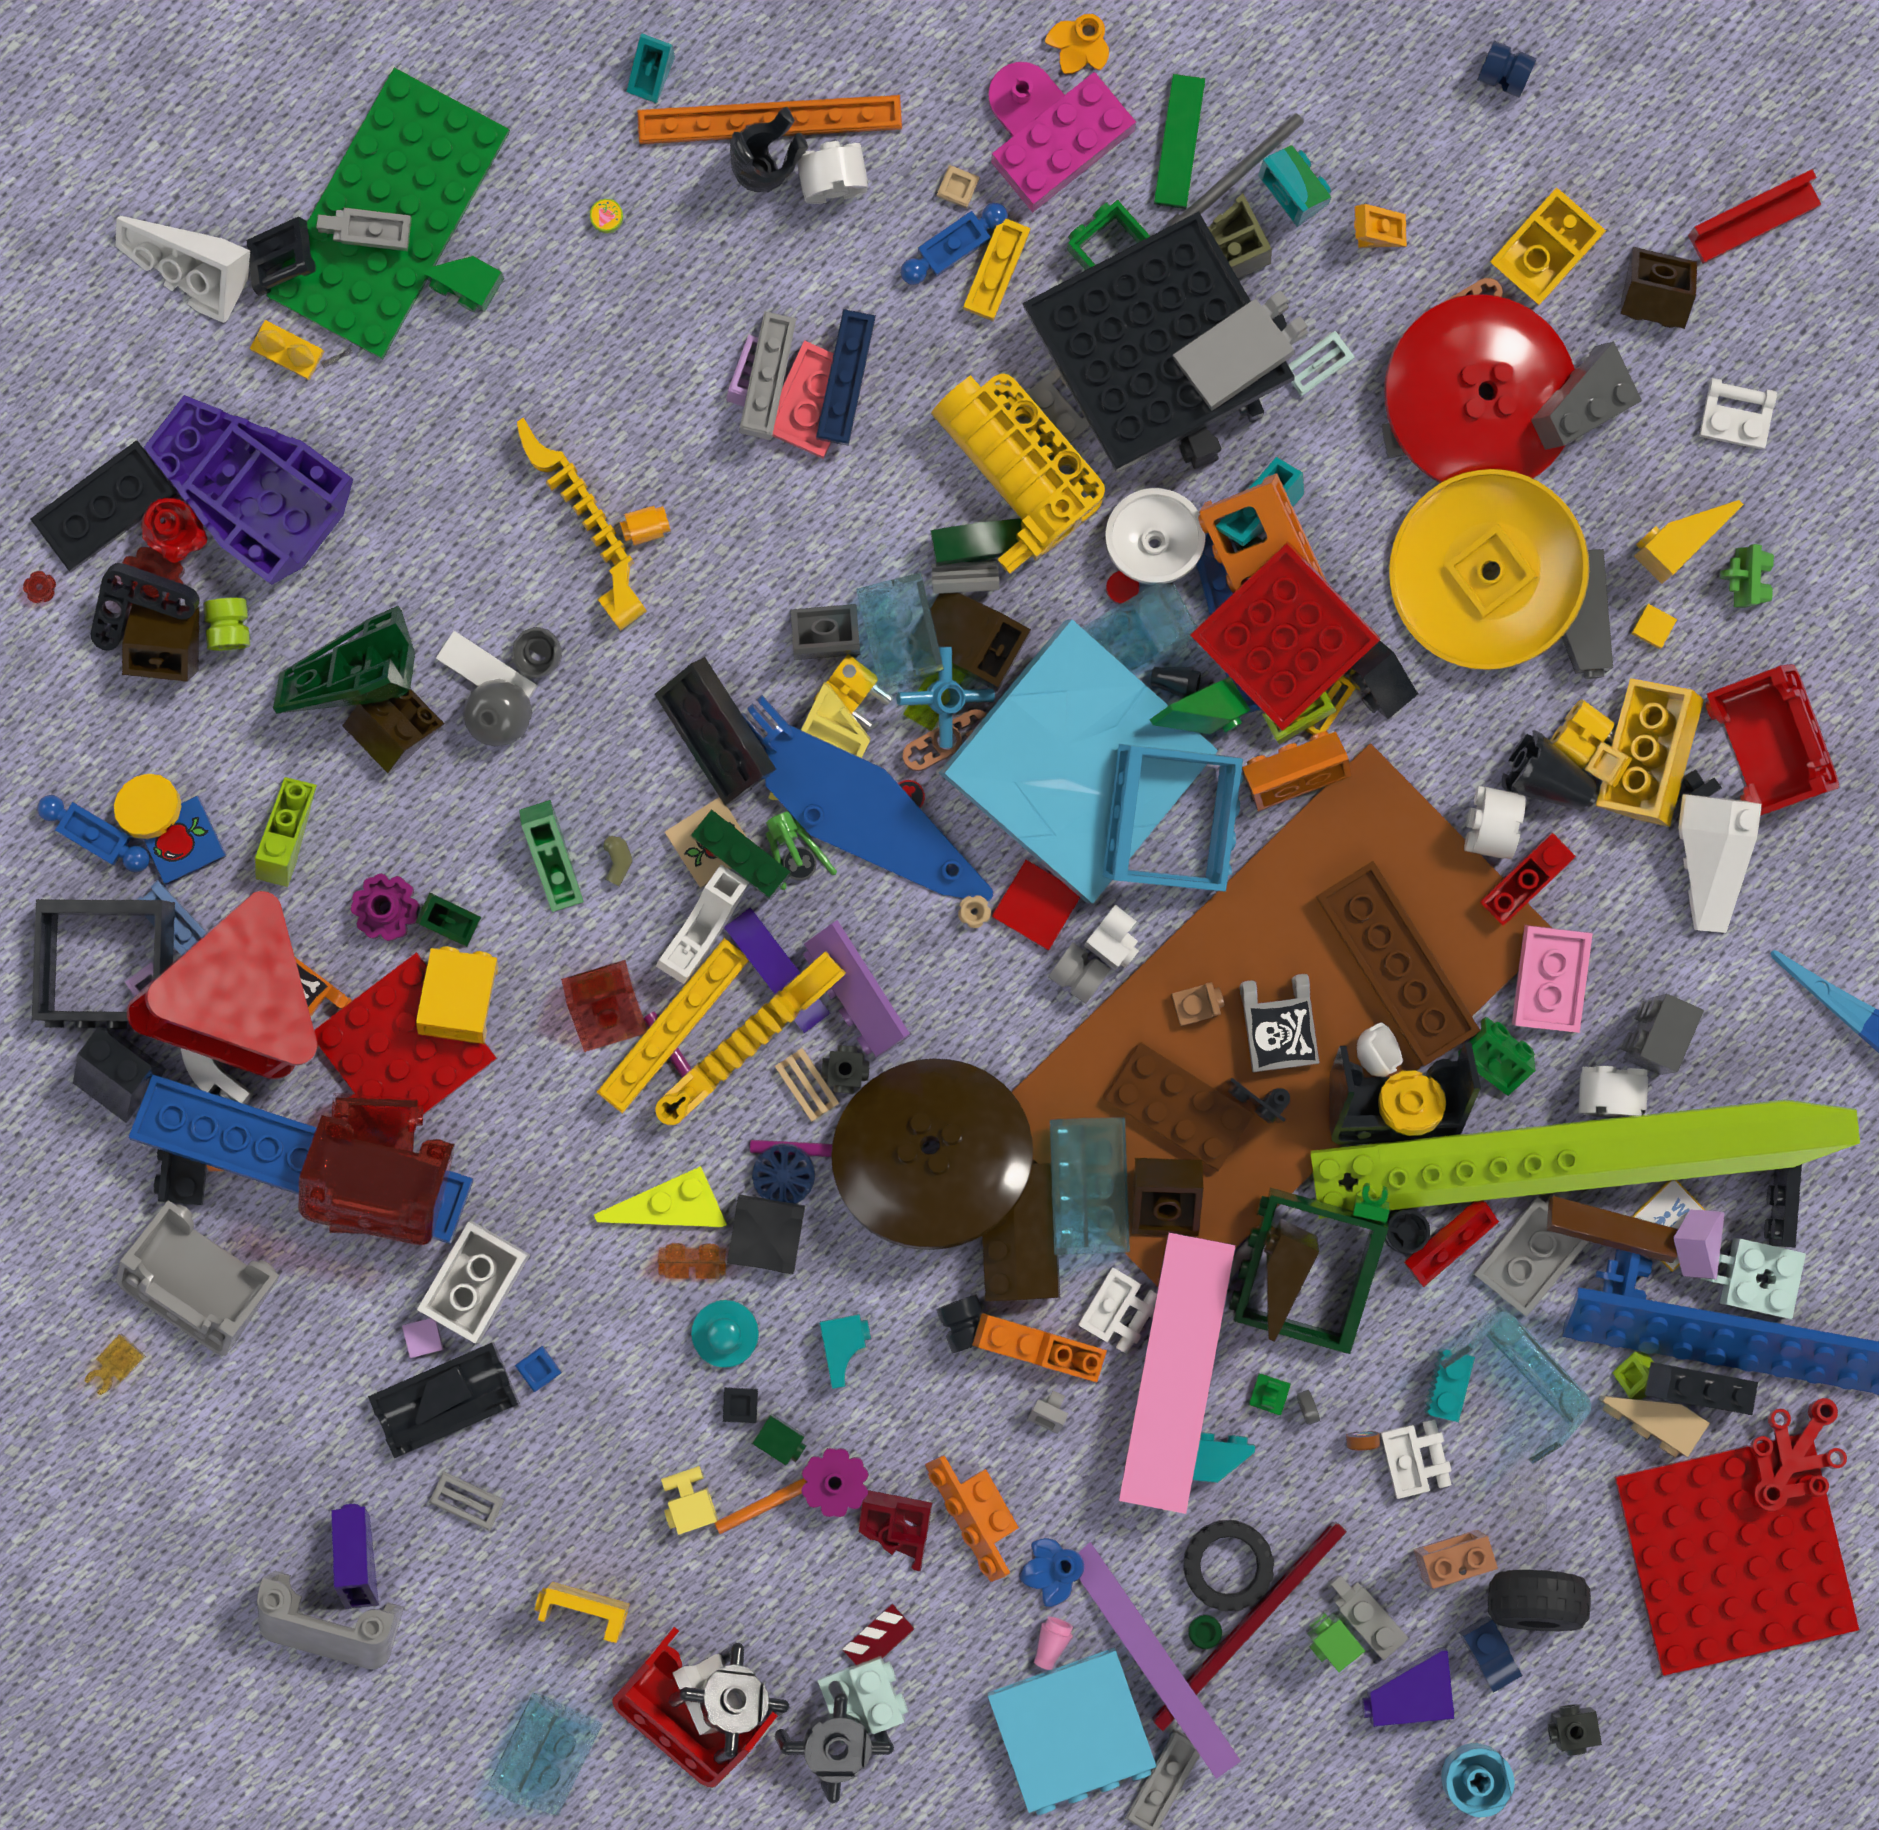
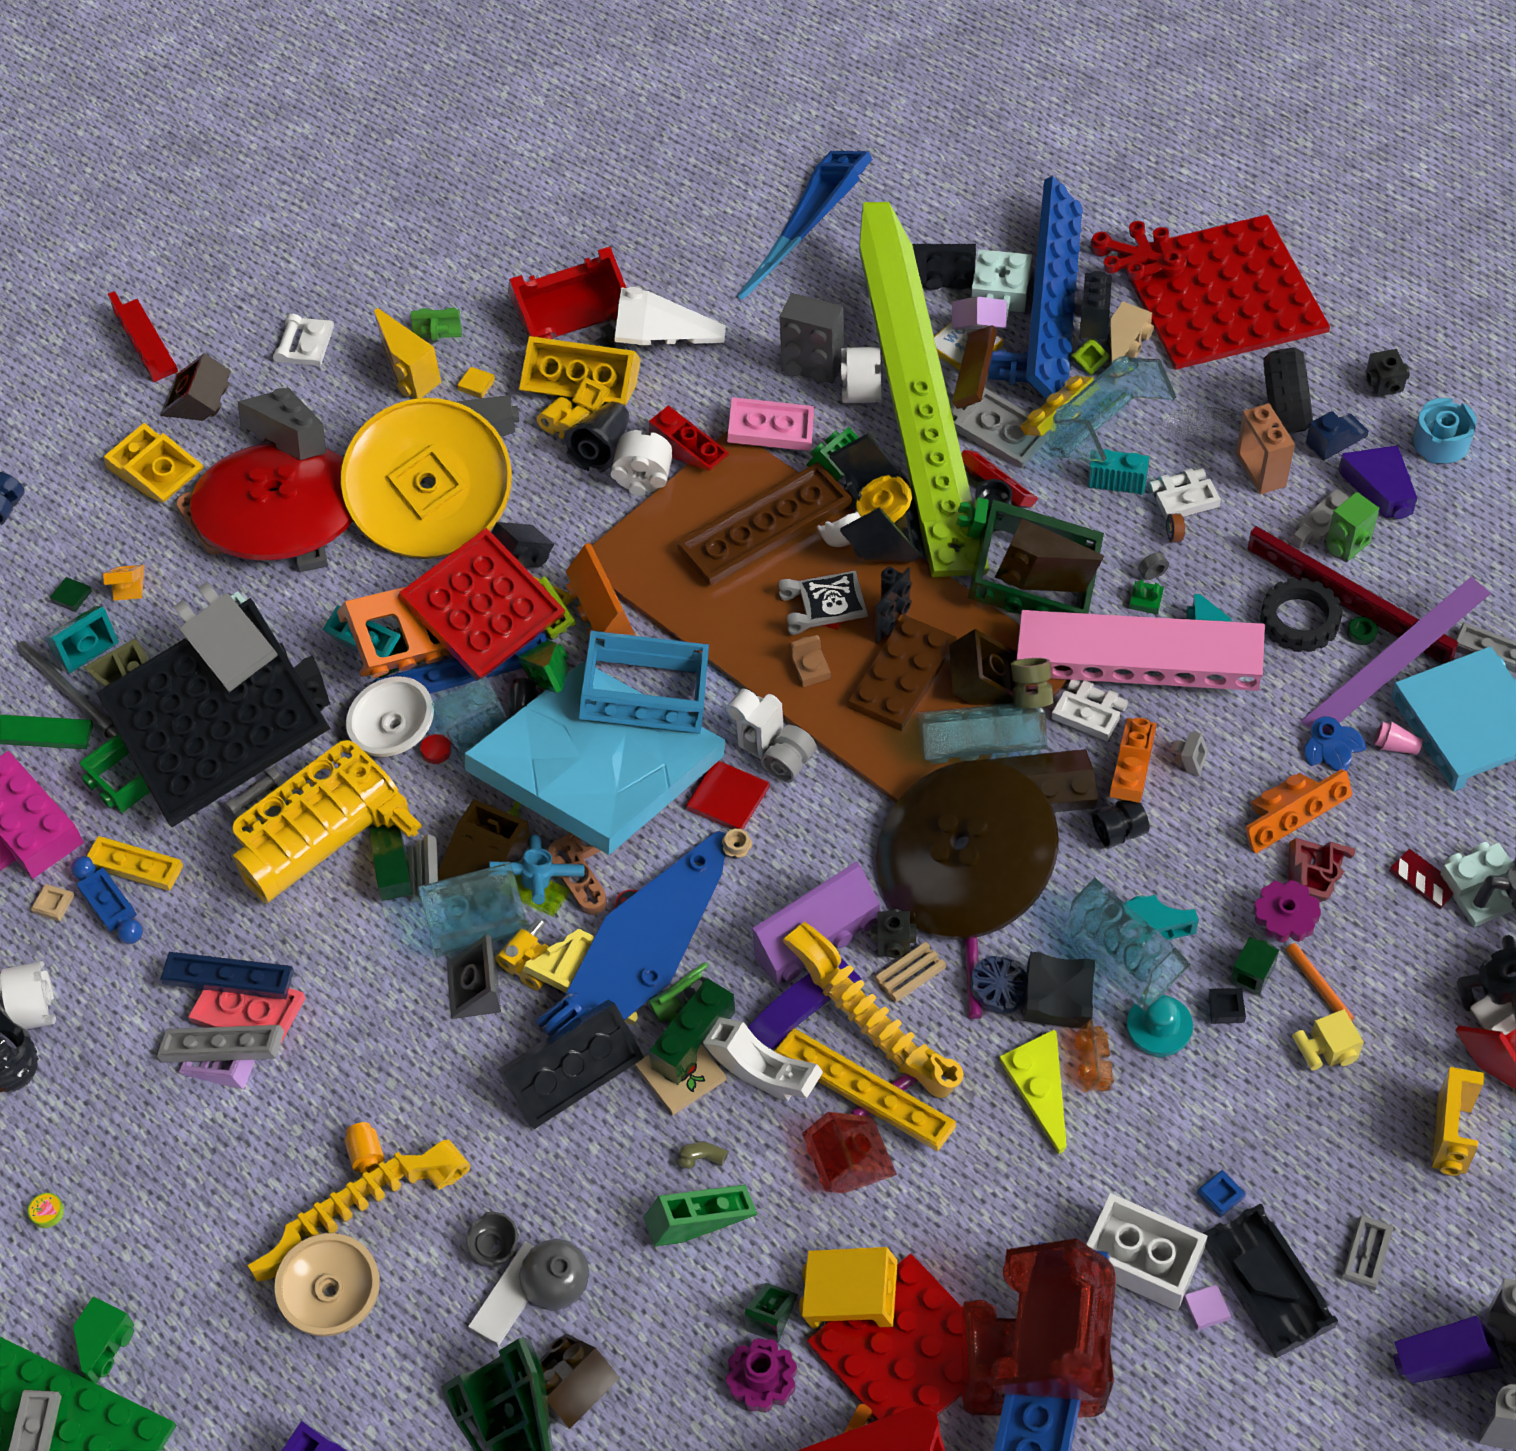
camera: 85 degrees left, 30 degrees down
(475, 488) = (324, 1263): none -> tan dish
(802, 1306) = (1122, 945): none -> clear light blue slope
(1136, 1246) = (1031, 672): none -> olive wheel
(1366, 166) = (70, 594): none -> dark green tile
(1545, 1324) = (1041, 419): none -> yellow plate

